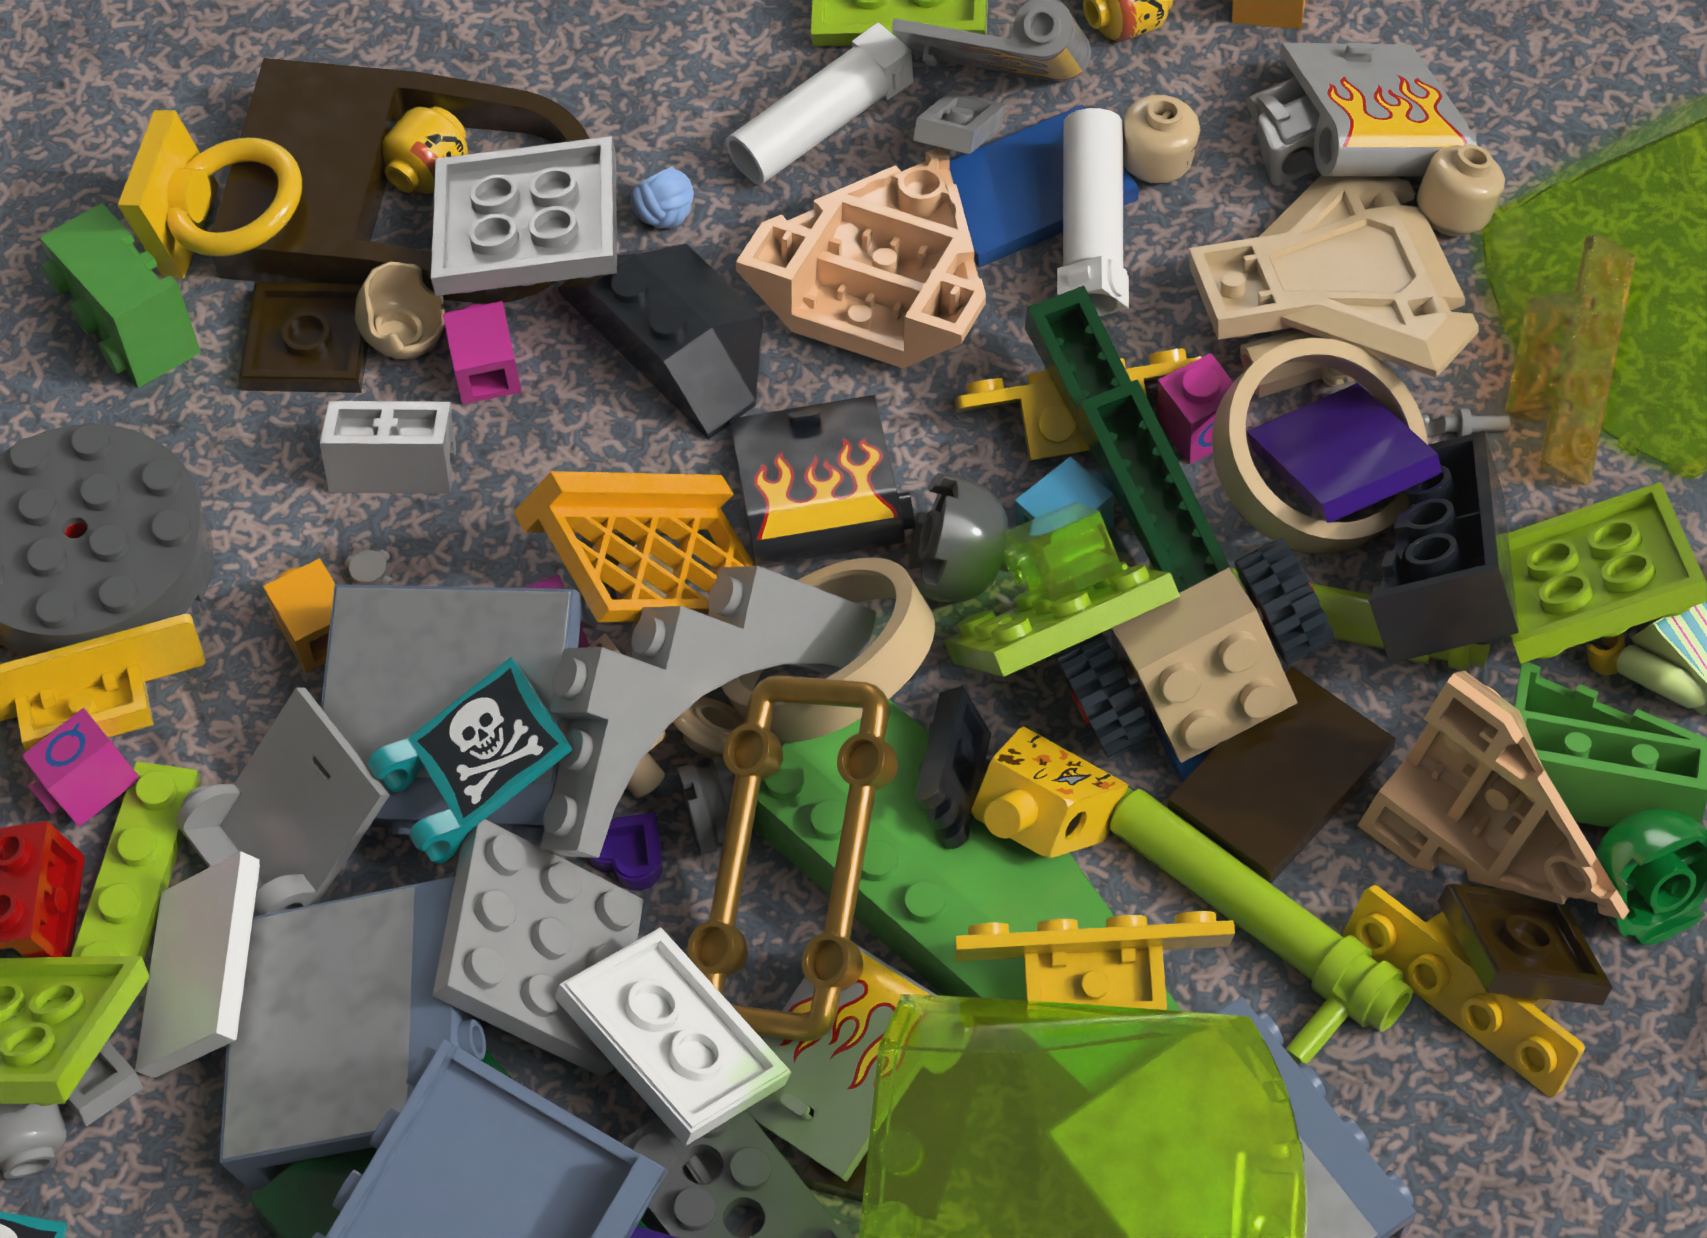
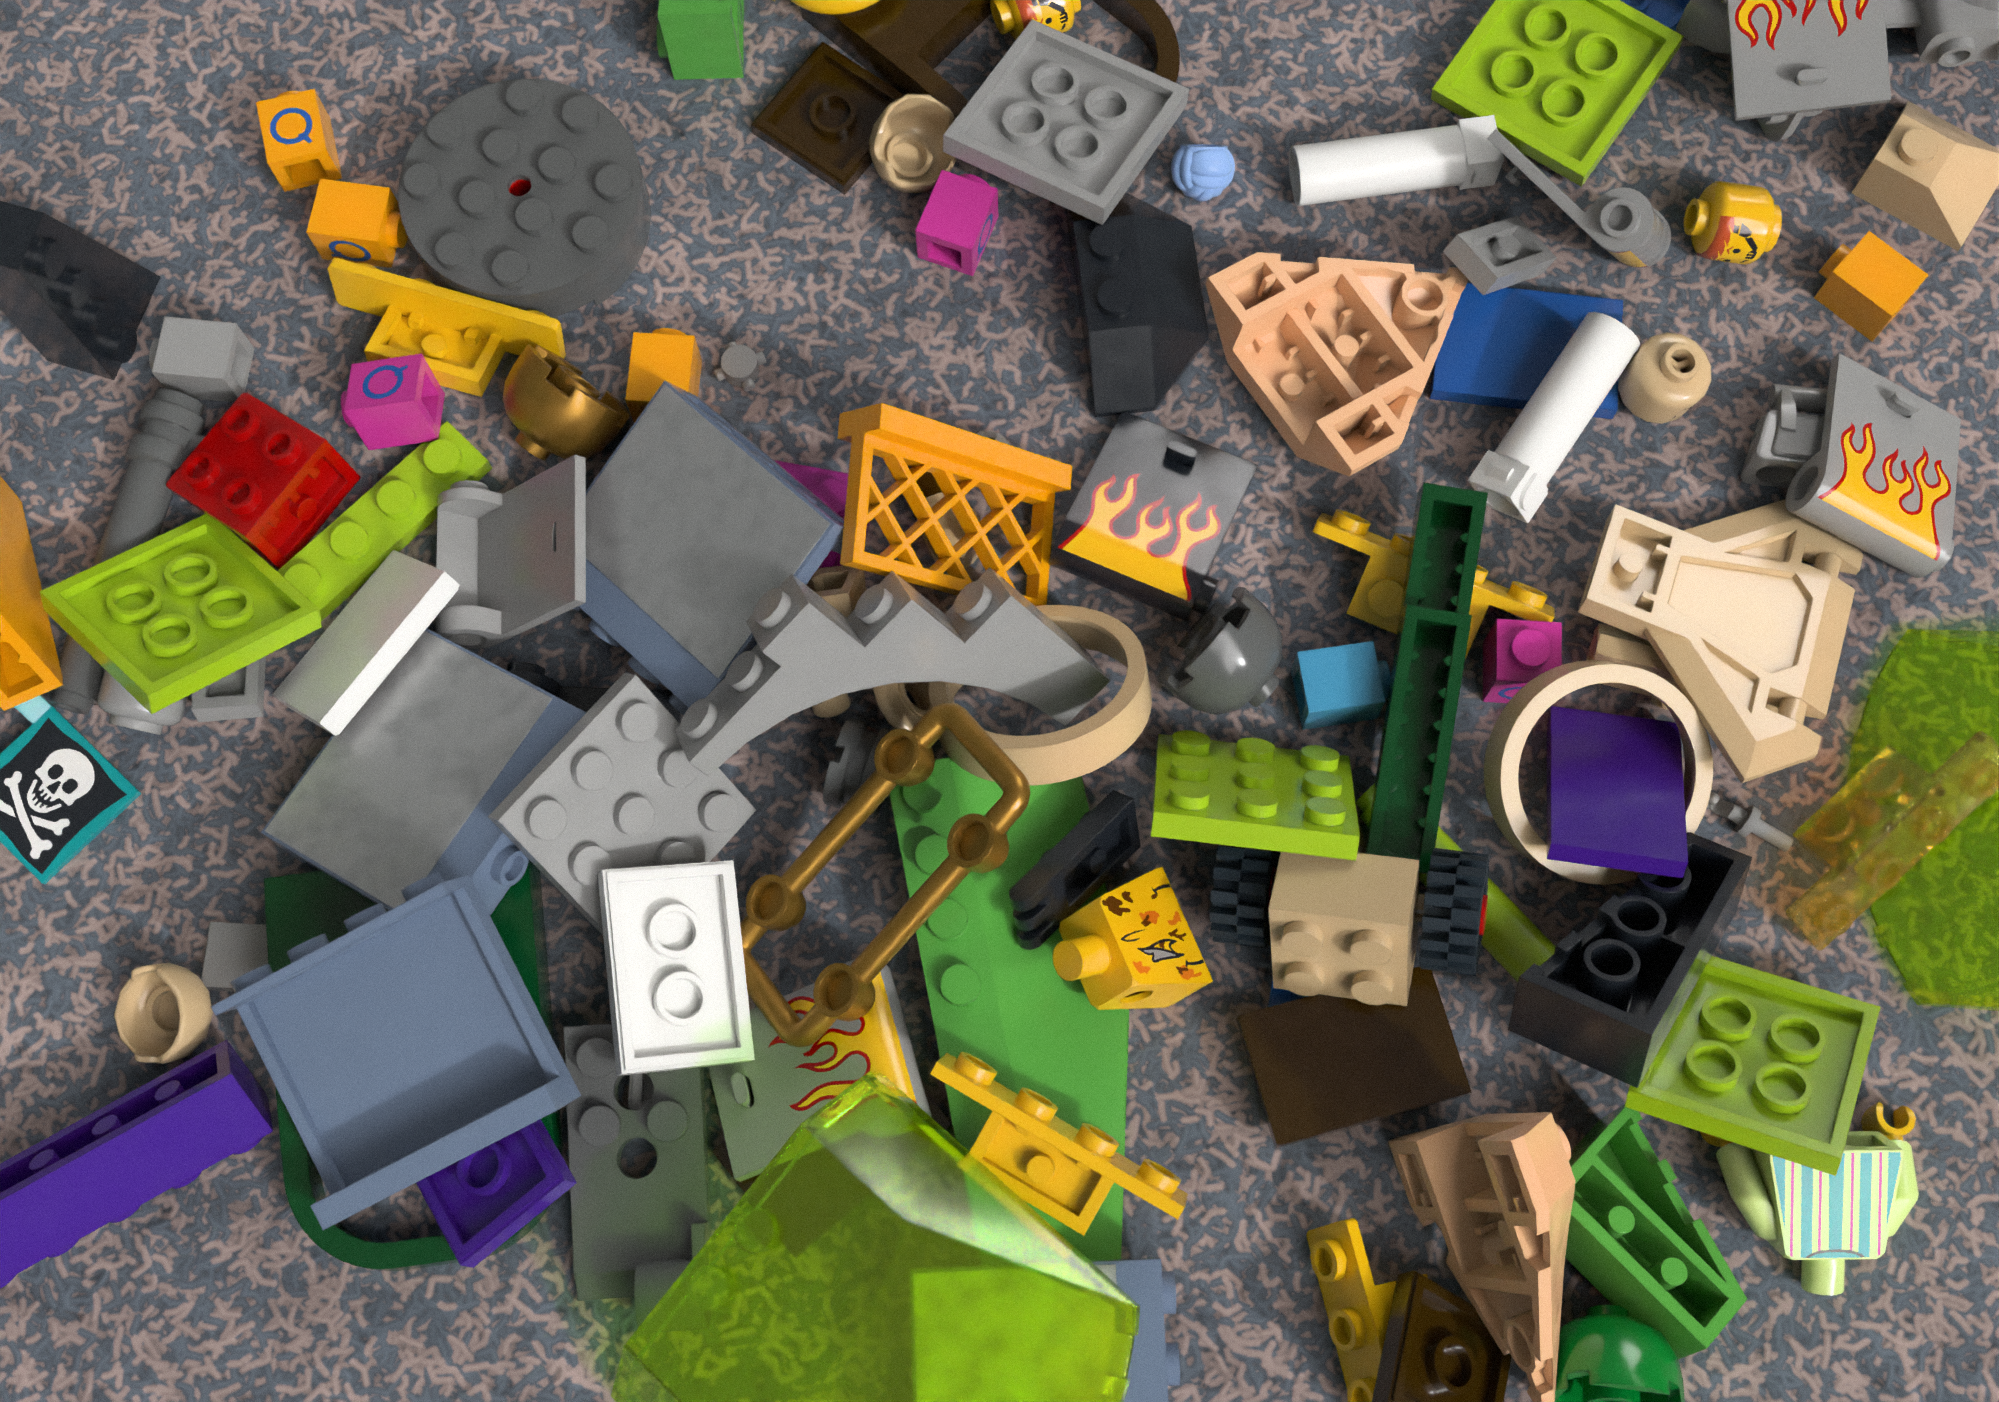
camera: 30 degrees right, 15 degrees up
(235, 684) = (558, 407): none -> pearl gold cylinder
(388, 446) = (824, 262): light grey hinge -> none
(476, 754) = (675, 620): flag -> none
(632, 851) = (779, 759): dark purple tile -> none
(1061, 552) = (1289, 739): clear neon green brick -> none
(1336, 965) = (1276, 1265): lime cylinder -> none
(1460, 189) = (1901, 598): tan head -> none

